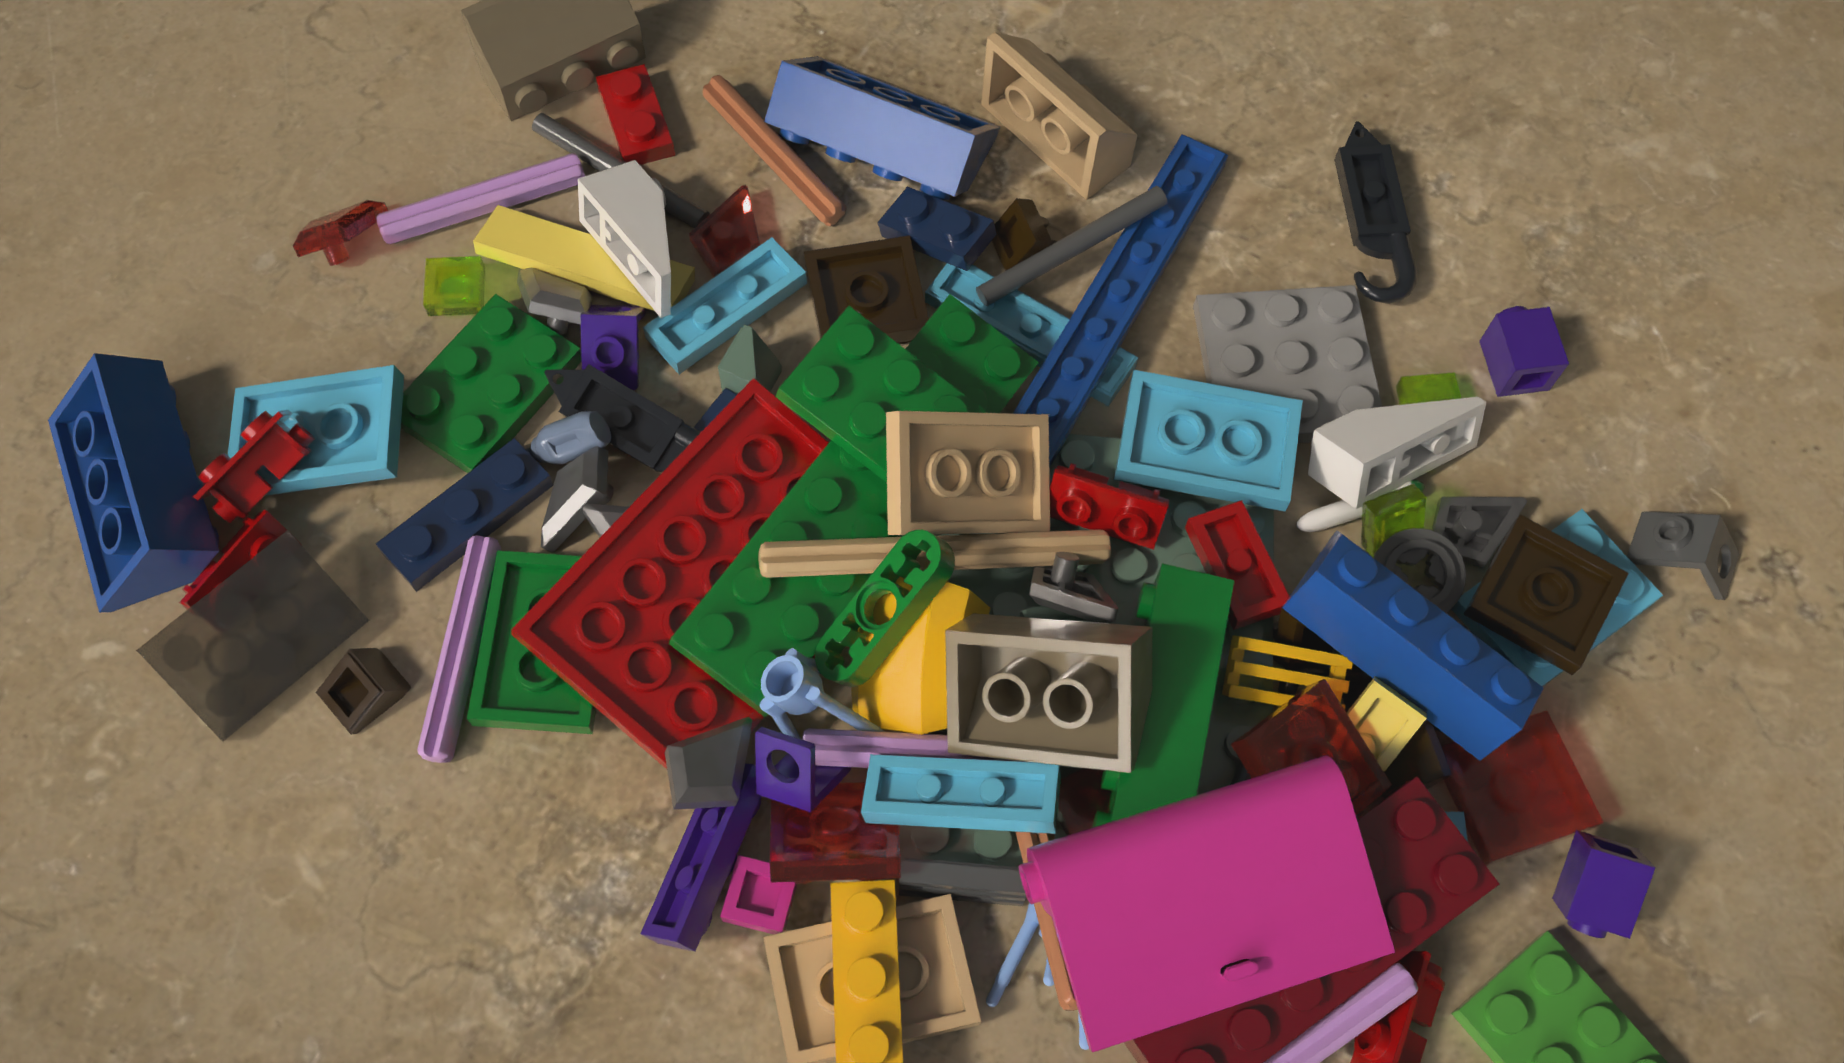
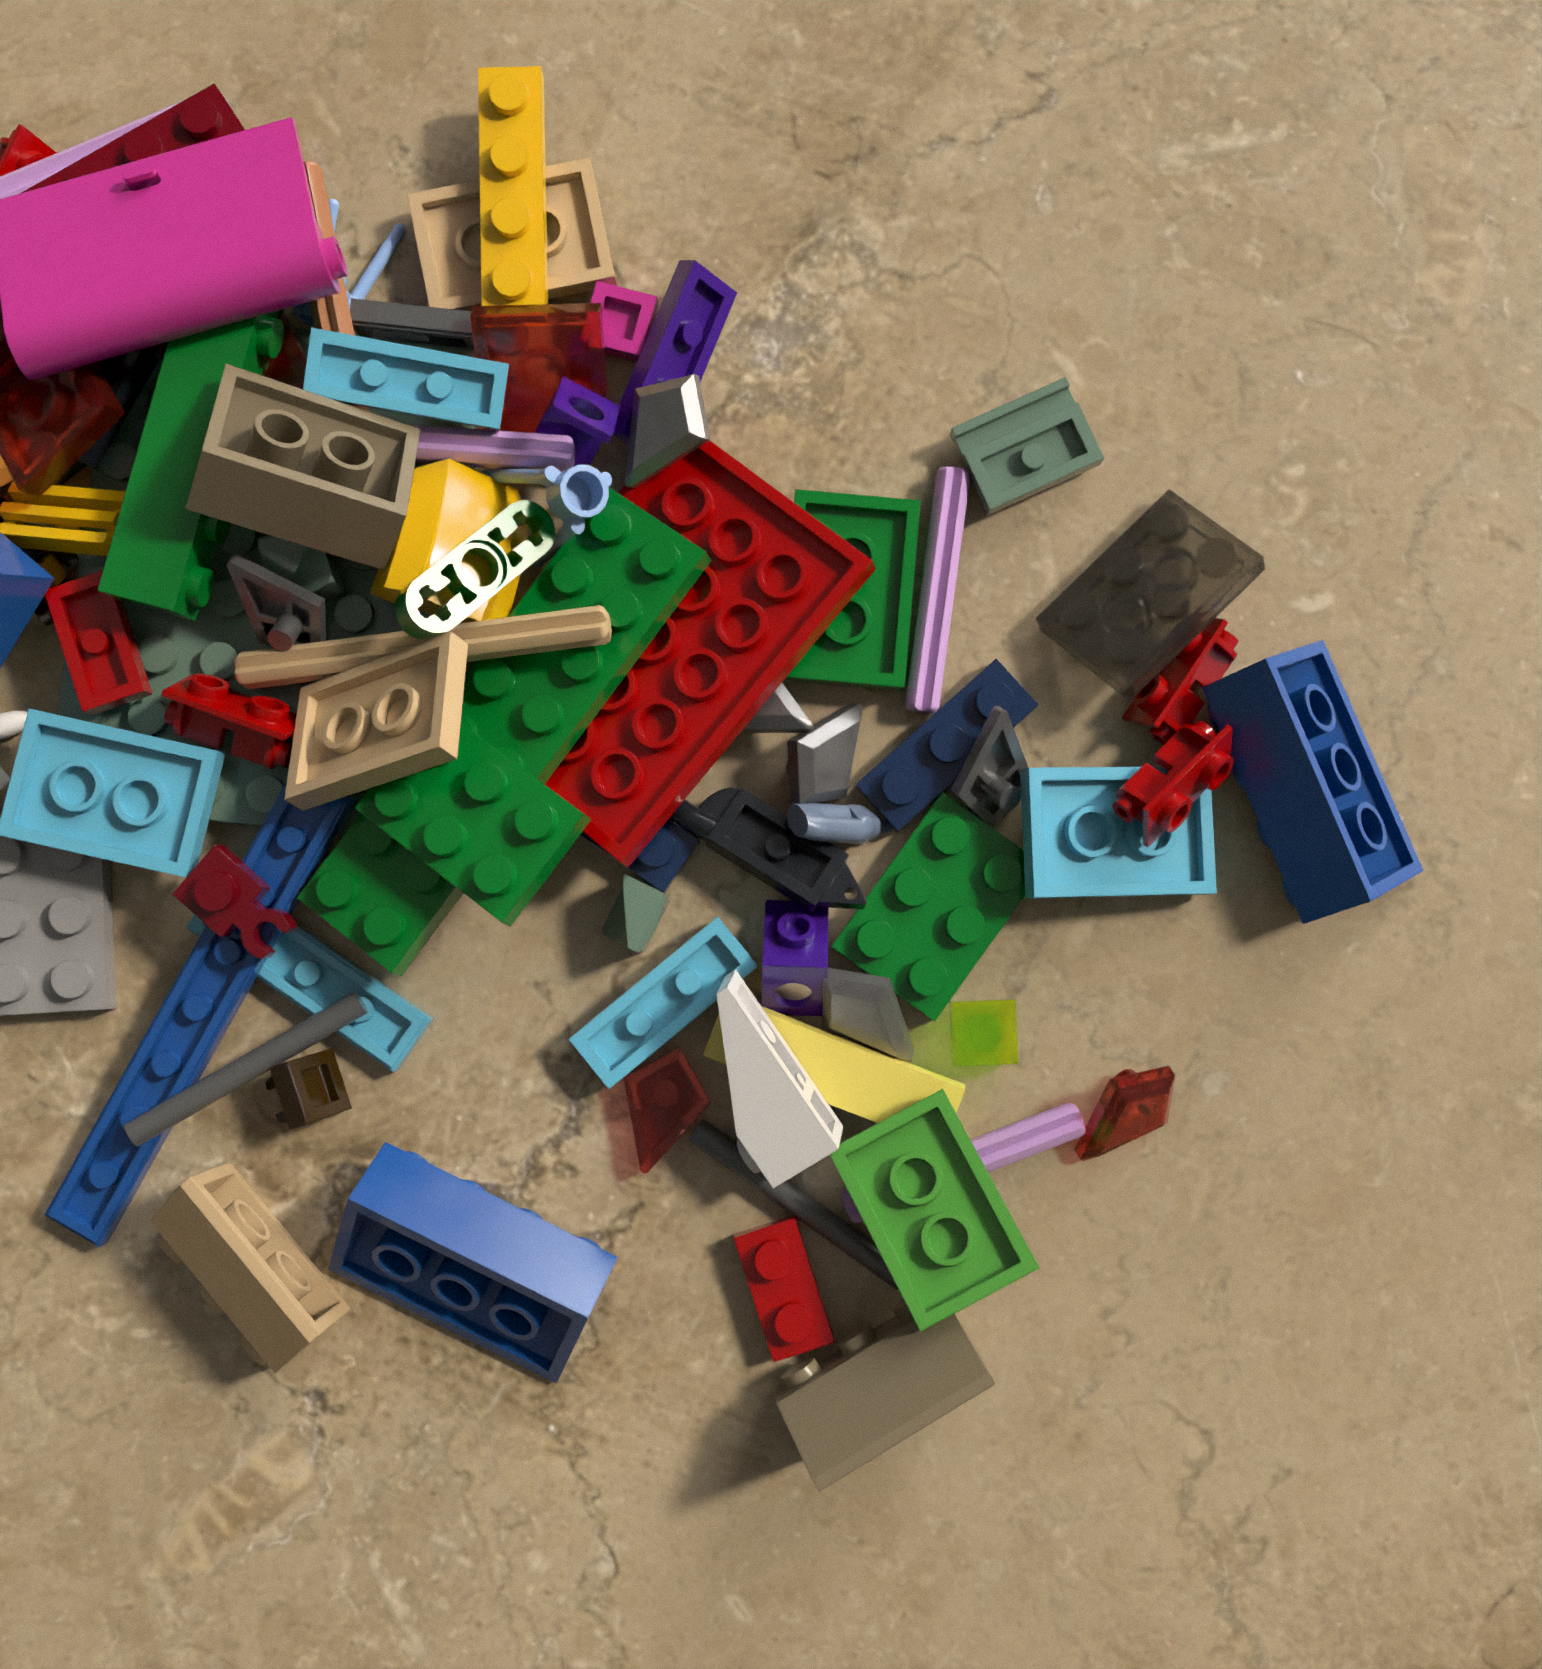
camera: 175 degrees left, 20 degrees up
(357, 779) = (1026, 446): none -> sand green plate
(362, 688) = (1034, 550): dark brown slope -> none
(423, 480) = (991, 773): none -> flat silver piece
(504, 143) = (933, 1210): none -> bright green plate
(774, 151) = (611, 1230): nougat axle -> none
(873, 279) = (498, 1015): dark brown plate -> none
(938, 228) = (411, 1105): dark blue plate -> none
(1094, 359) = (227, 896): none -> dark red plate

